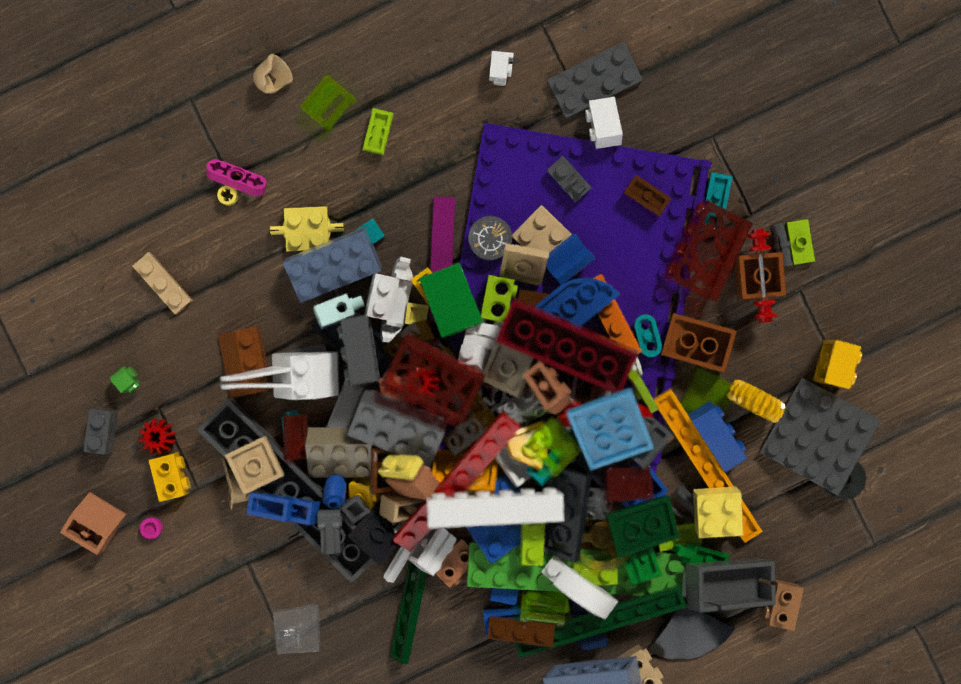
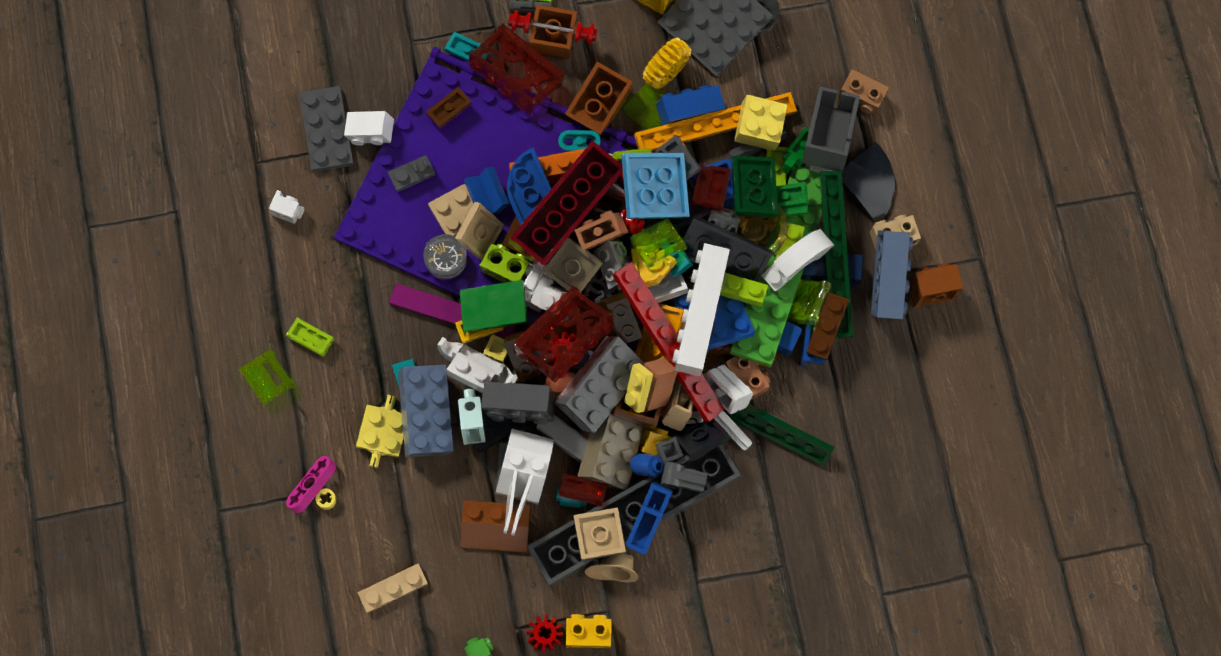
camera: 85 degrees left, 15 degrees down
(278, 69) = (216, 420): tan hair -> none
(297, 629) = (775, 547): clear plate -> none

